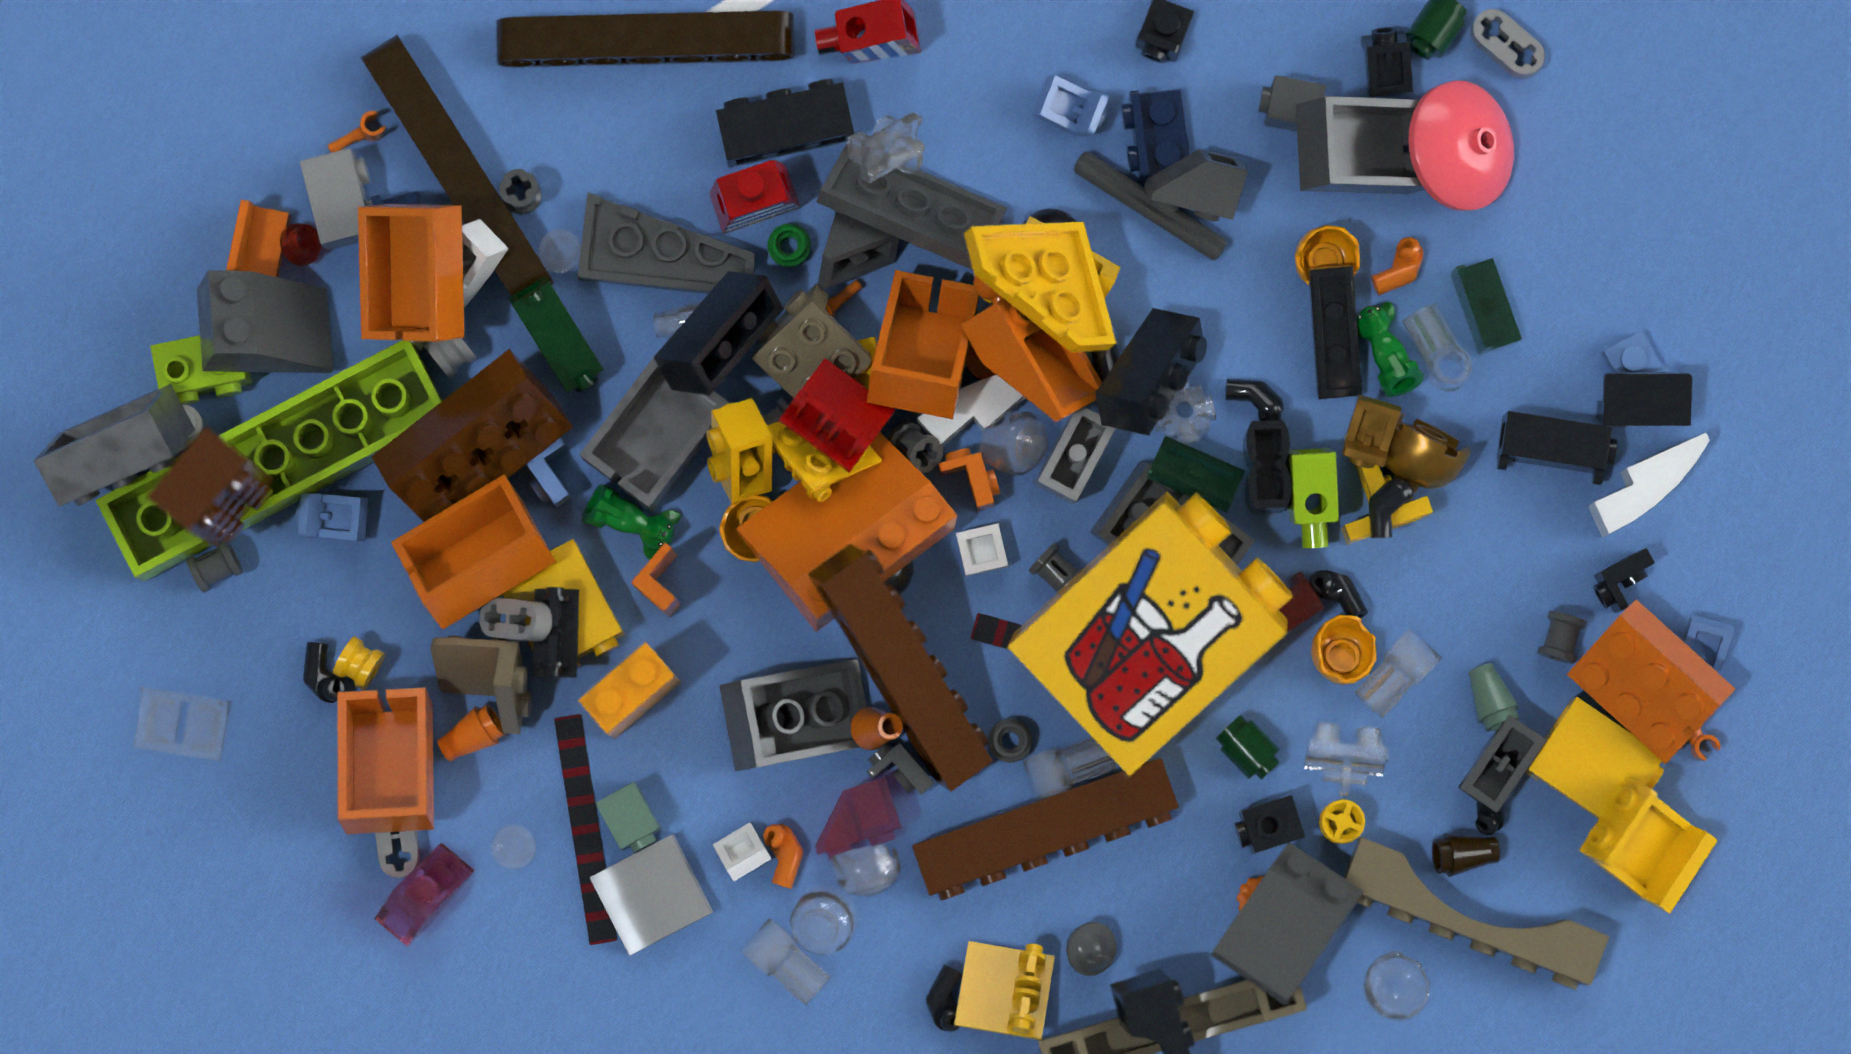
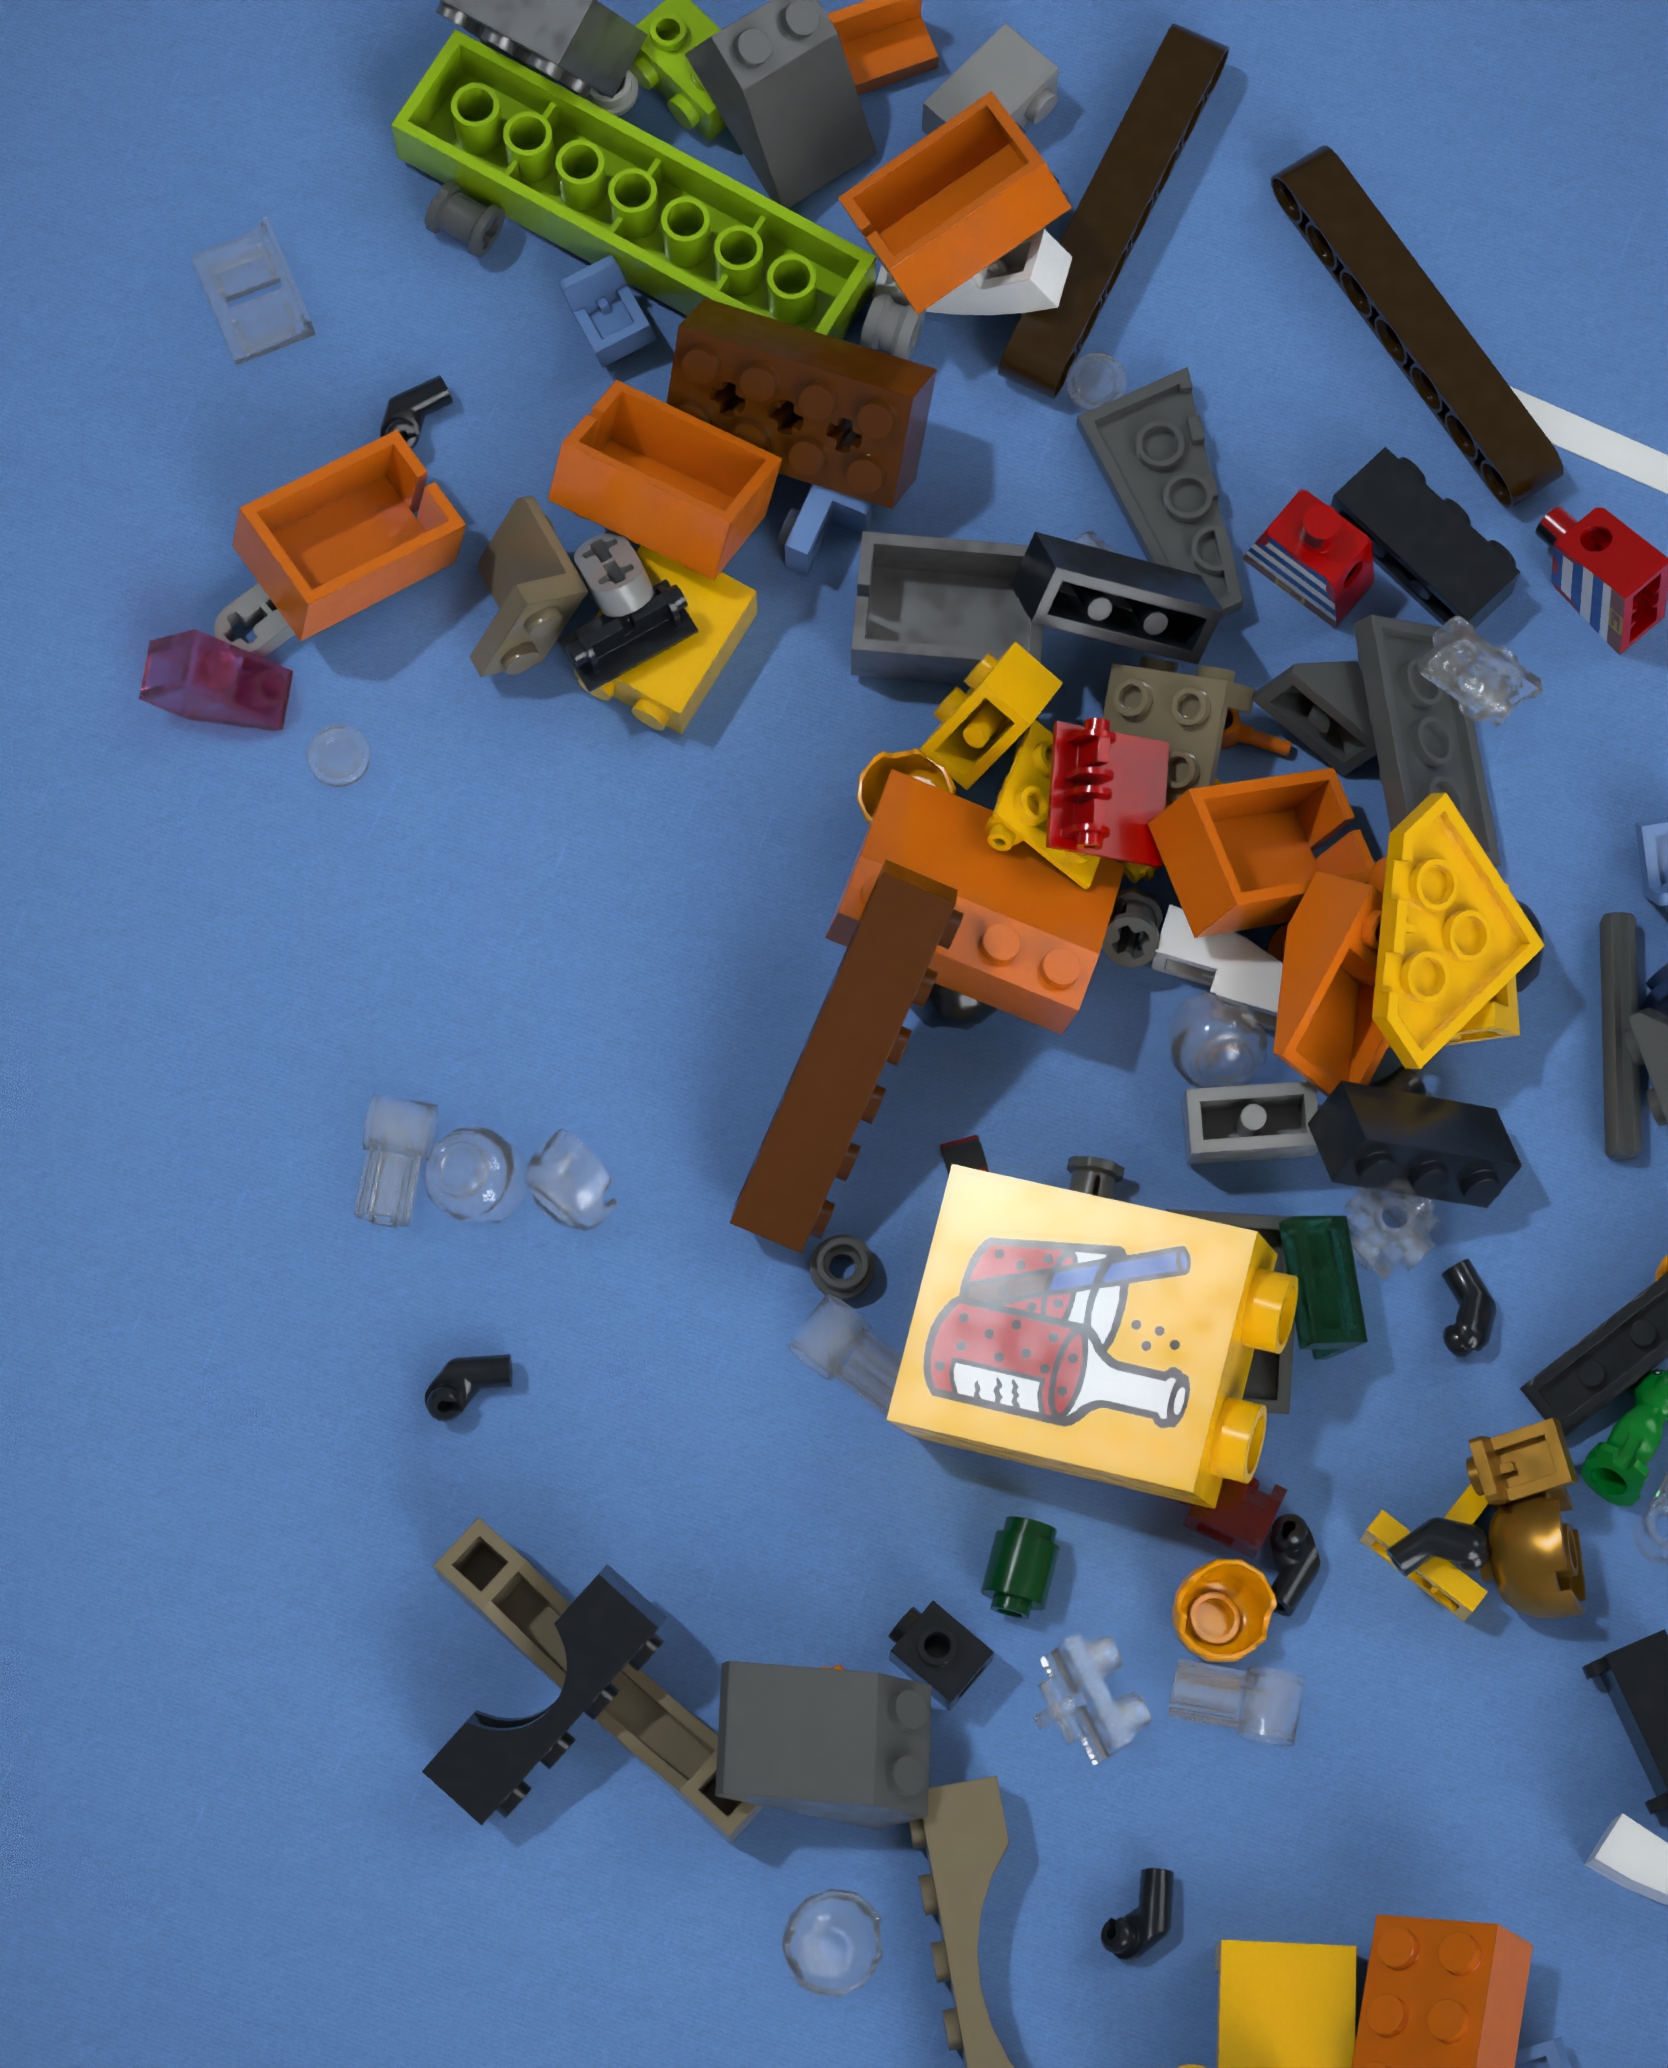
camera: 55 degrees right, 10 degrees down
(212, 488) = (544, 112): reddish brown brick -> none
(300, 244) = (921, 86): clear red plate -> none
(358, 663) = (451, 445): yellow wheel -> none
(359, 133) = (1086, 82): orange hand -> none
(472, 733) = (444, 623): orange cone -> none
(533, 194) = (1136, 293): dark grey bush -> none
(556, 335) = (991, 429): dark green brick -> none
(583, 824) = (412, 829): black sticker -> none
(609, 509) = (823, 641): green animal -> none
(629, 691) = (611, 762): light orange brick -> none
(629, 818) = (458, 865): sand green brick -> none
(647, 585) = (773, 707): orange panel -> none
(651, 894) = (379, 949): light grey slope -> none
(742, 851) = (498, 1023): white plate -> none
(784, 232) = (1285, 622): green plate -> none
(786, 850) = (534, 1080): orange arm -> none
(792, 714) = (710, 987): dark grey slope -> none
(858, 816) = (632, 1137): clear pink slope -> none
(874, 728) = (737, 1082): orange cone -> none
(908, 774) = (721, 1165): dark grey bracket -> none
(982, 482) = (1141, 1035): orange bracket -> none
(982, 550) = (1057, 1088): white plate -> none
(1005, 989) = (523, 1447): yellow hinge -> none
(1045, 827) = (759, 1374): reddish brown brick -> none
(1091, 948) = (641, 1524): dark grey hat -> none
(1265, 454) = (1405, 1363): black brick -> none
(1312, 473) = (1416, 1424): lime torso -> none
(1350, 818) = (1000, 1733): yellow wheel -> none
(1461, 853) = (1060, 1929): dark brown cone -> none
(1491, 697) = (1282, 1845): sand green cone -> none
(1502, 763) = (1207, 1902): dark grey slope -> none
(1561, 637) = (1421, 1884): dark grey bush -> none
(1625, 571) = (1562, 1916): black bracket -> none

